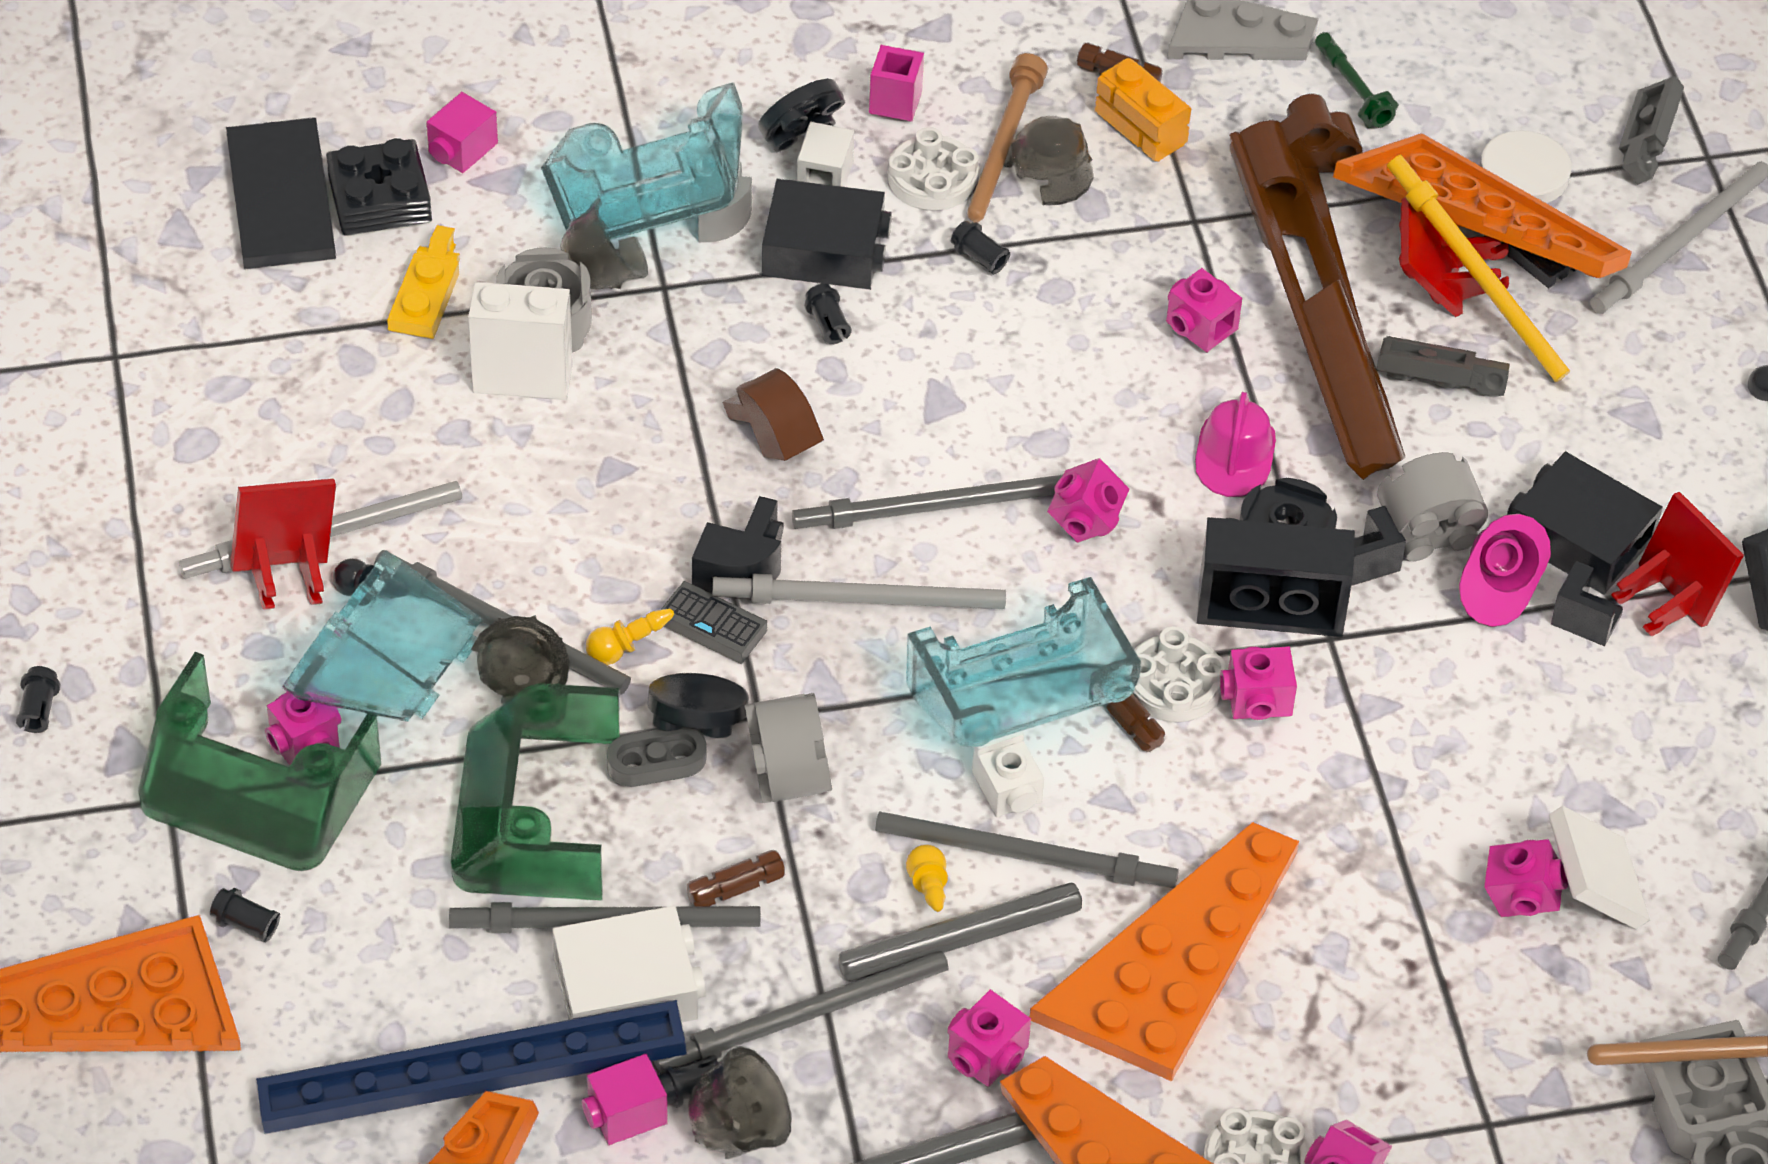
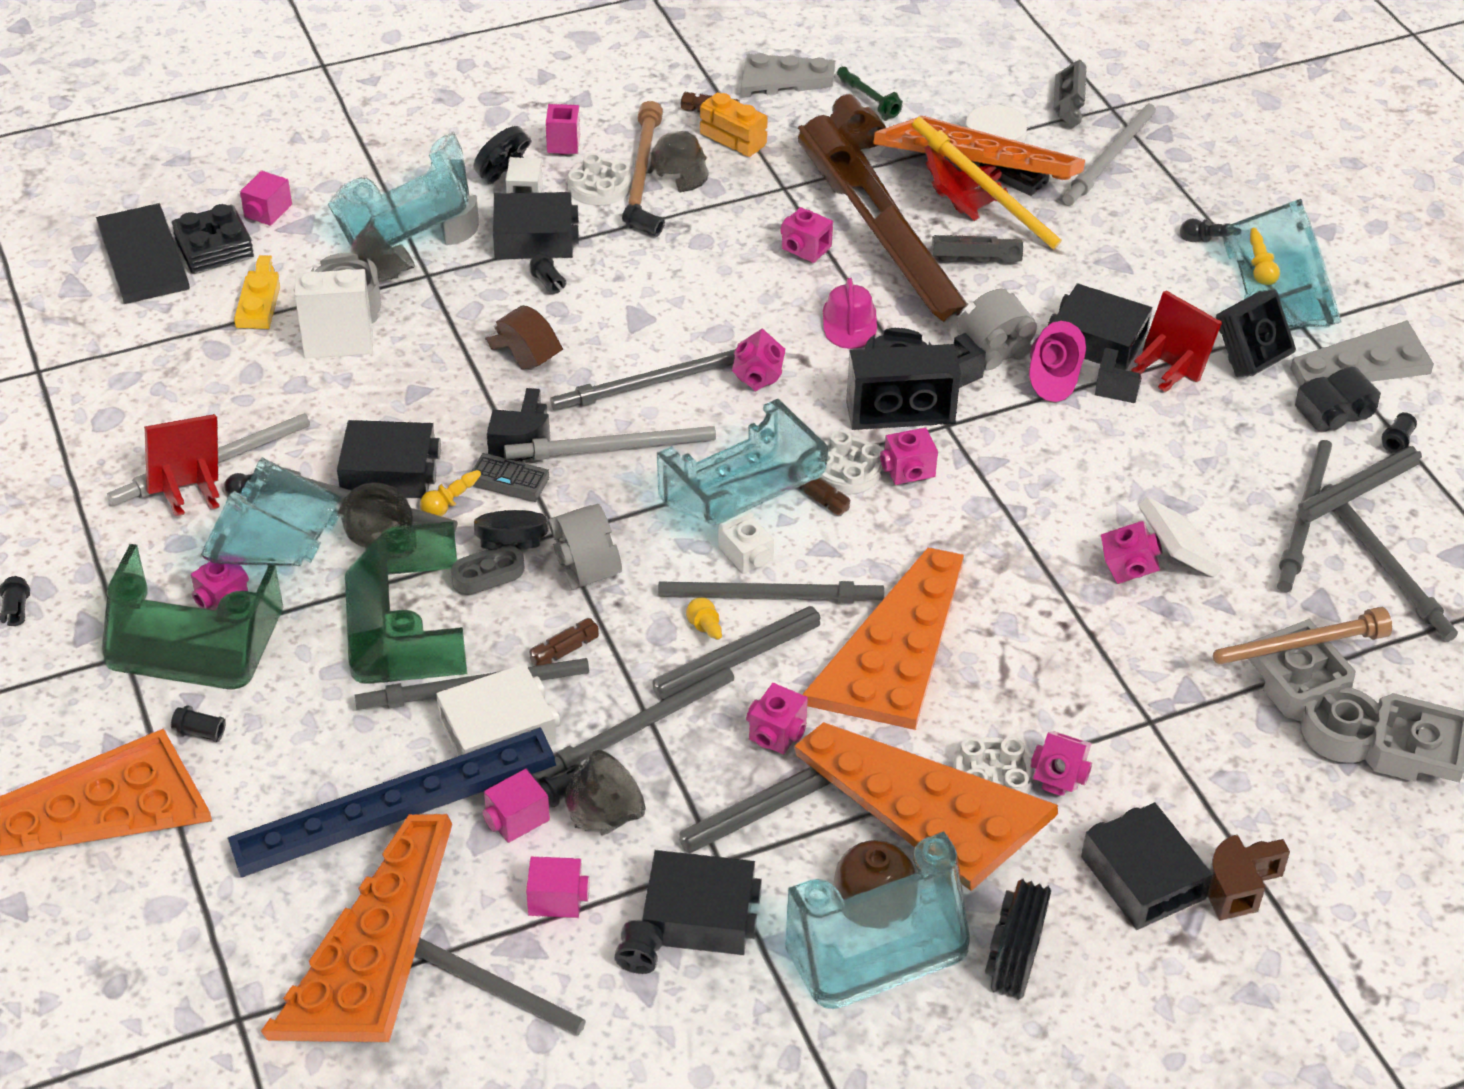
camera: 10 degrees left, 5 degrees down
(556, 570) = (389, 454): none -> black brick

